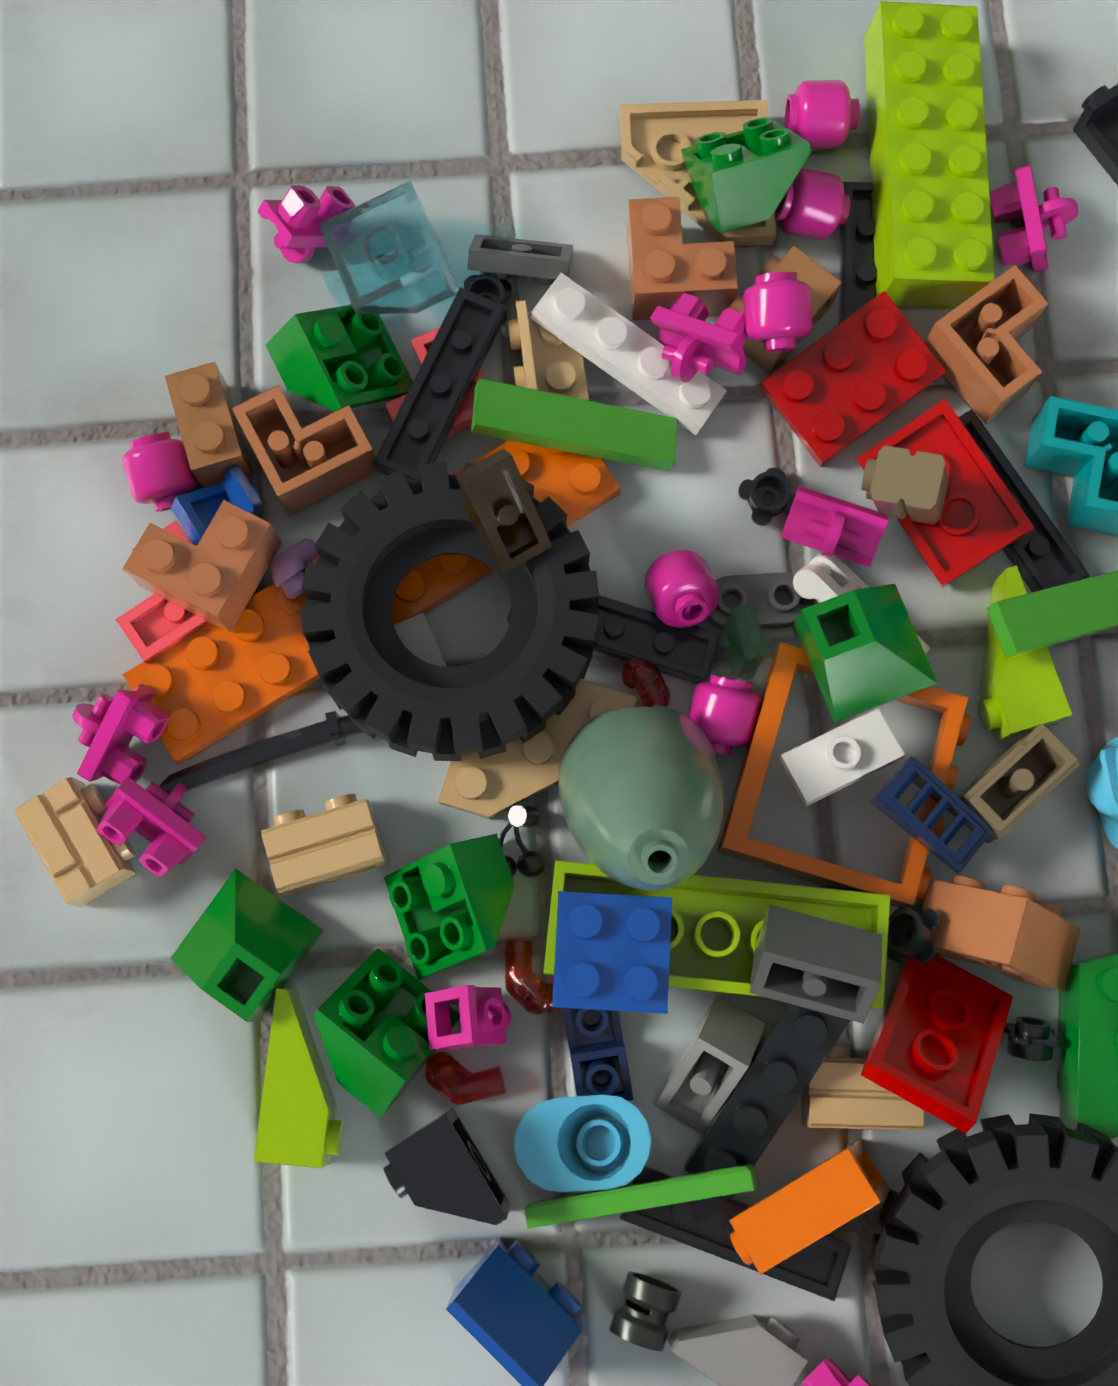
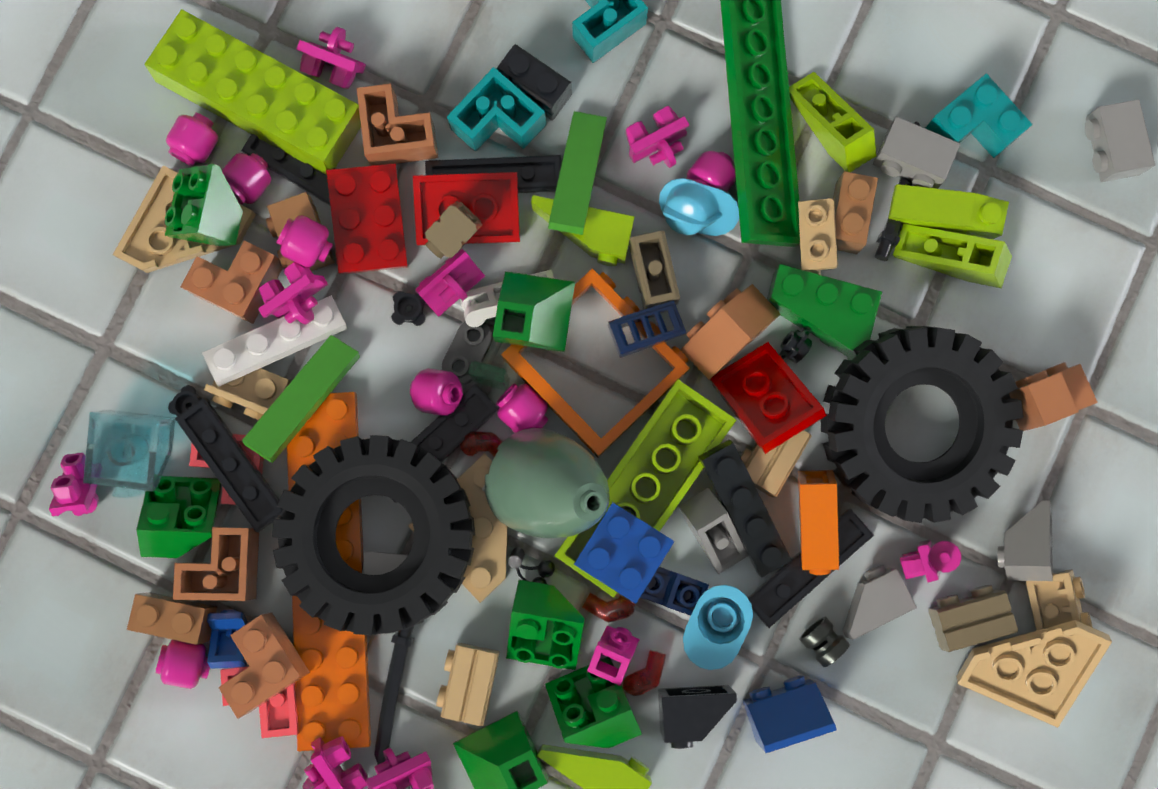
camera: 60 degrees left, 5 degrees up
(289, 567) = (289, 615): lavender arm -> none
(503, 510) = (336, 474): dark brown slope -> none
(520, 257) = (174, 371): dark grey plate -> none
(642, 1196) = (763, 609): bright green tile -> none
(817, 964) = (693, 444): dark grey brick -> none
(842, 757) = (586, 359): white plate -> none
(900, 929) = (698, 382): black plate -> none

